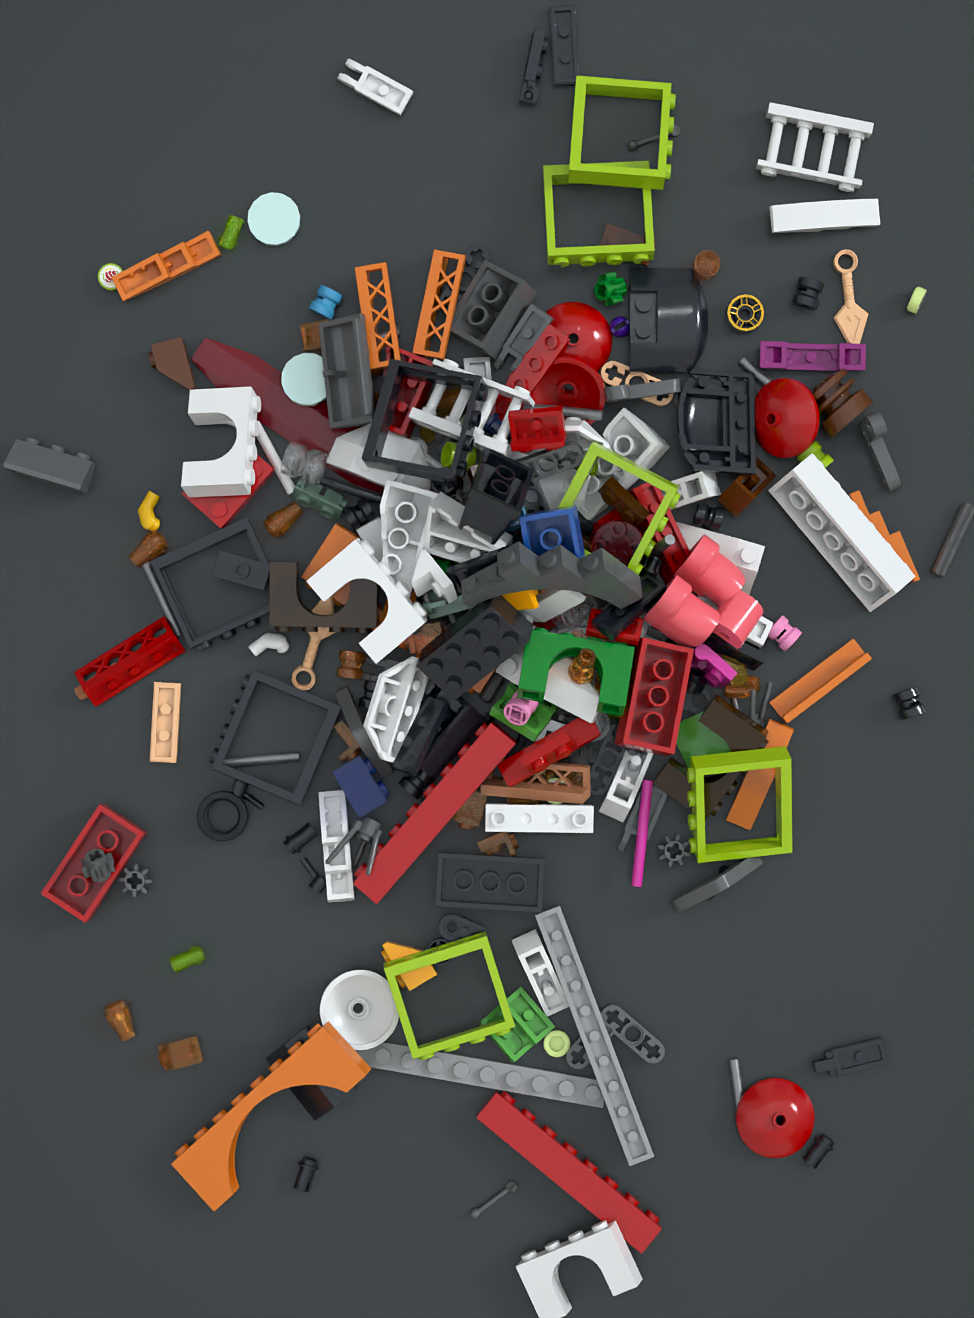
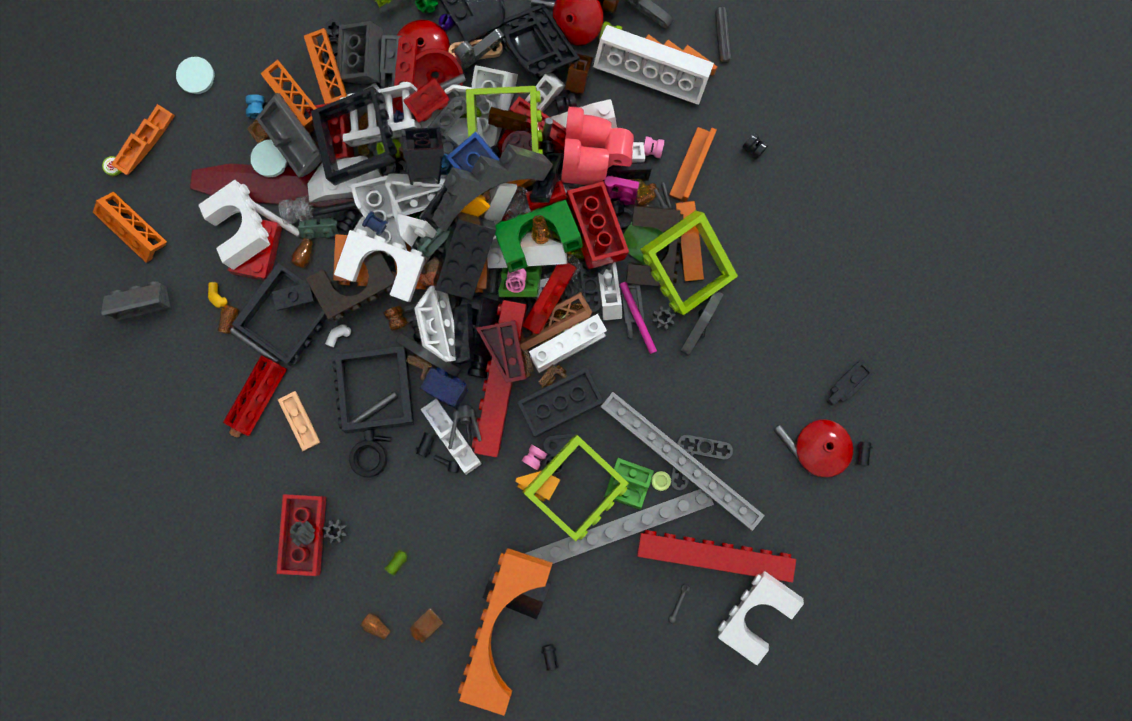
camera: 30 degrees left, 5 degrees down
(85, 365) = (124, 227): none -> orange fence
(173, 362) = (178, 195): reddish brown slope -> none
(230, 232) = (172, 97): clear neon green pin -> none
(321, 608) = (363, 311): light nougat piece -> none
(373, 1022) = (537, 525): white dish -> none
(389, 546) = (375, 223): none -> dark blue bush
(415, 930) = (531, 460): none -> bright pink wheel
(459, 785) = (505, 348): none -> dark red wedge
(540, 972) = (625, 441): white slope -> none

